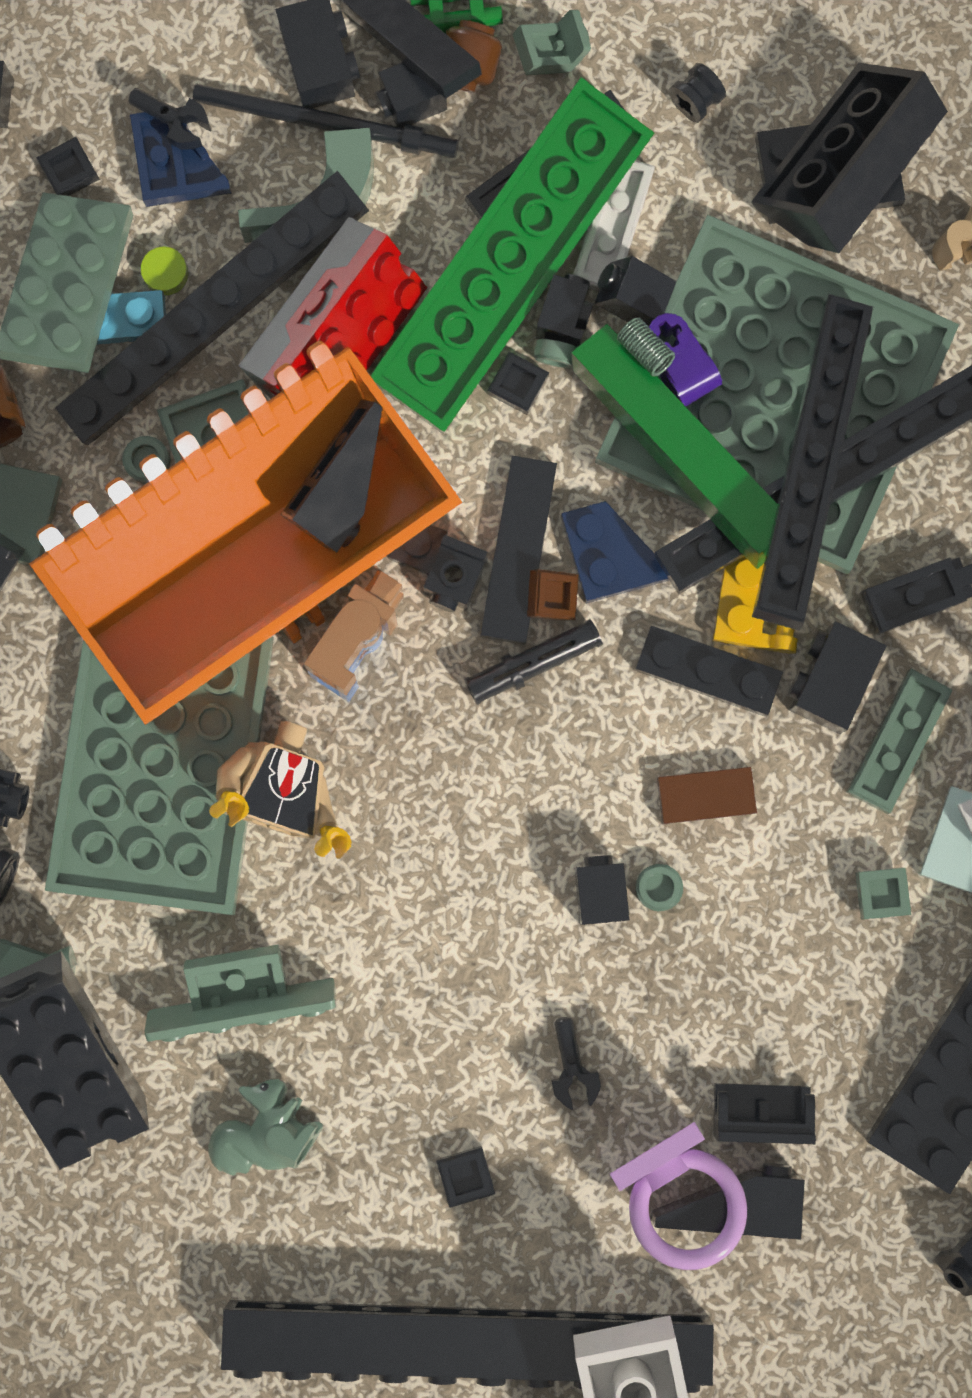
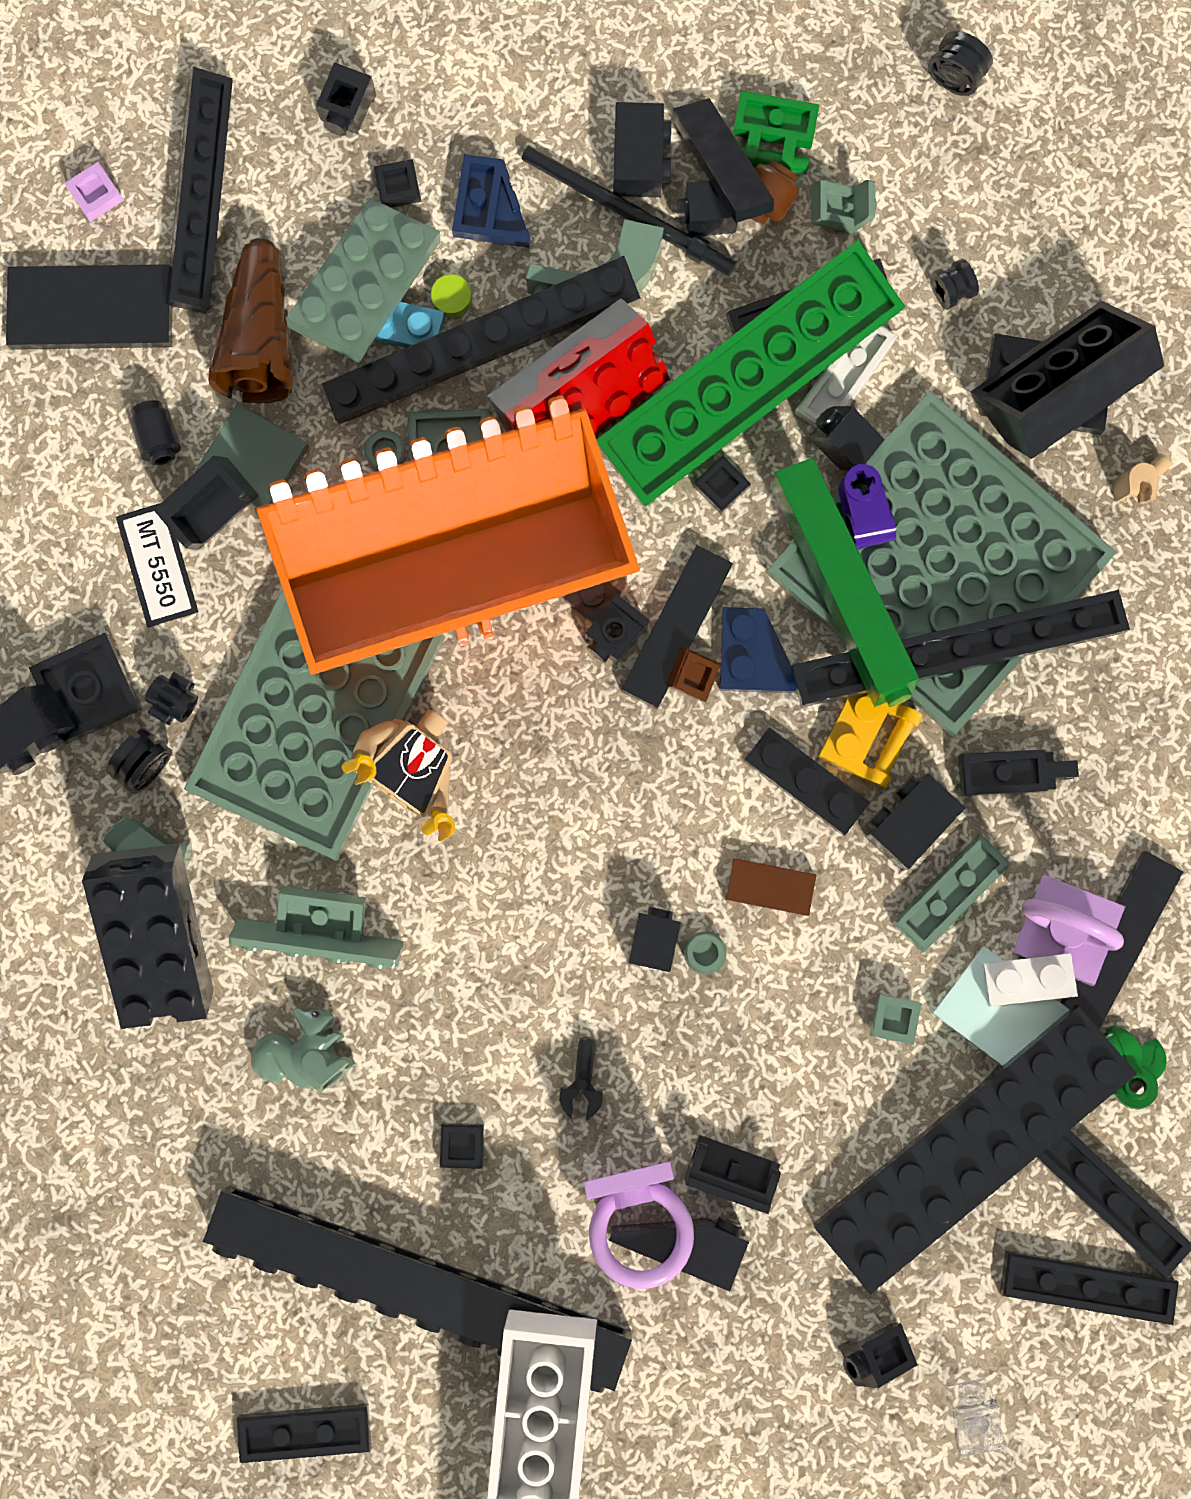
camera: 15 degrees right, 0 degrees up
(173, 117) = (516, 168): black bar -> none
(338, 485) = (537, 525): black slope -> none
(354, 634) = (514, 654): medium nougat hips -> none
(554, 353) = (760, 468): sand green tile -> none
(565, 310) = (781, 436): black brick -> none
(583, 637) = (609, 732): black pin -> none
(634, 338) = (833, 478): sand green piece -> none
(813, 464) = (950, 632): black tile -> none

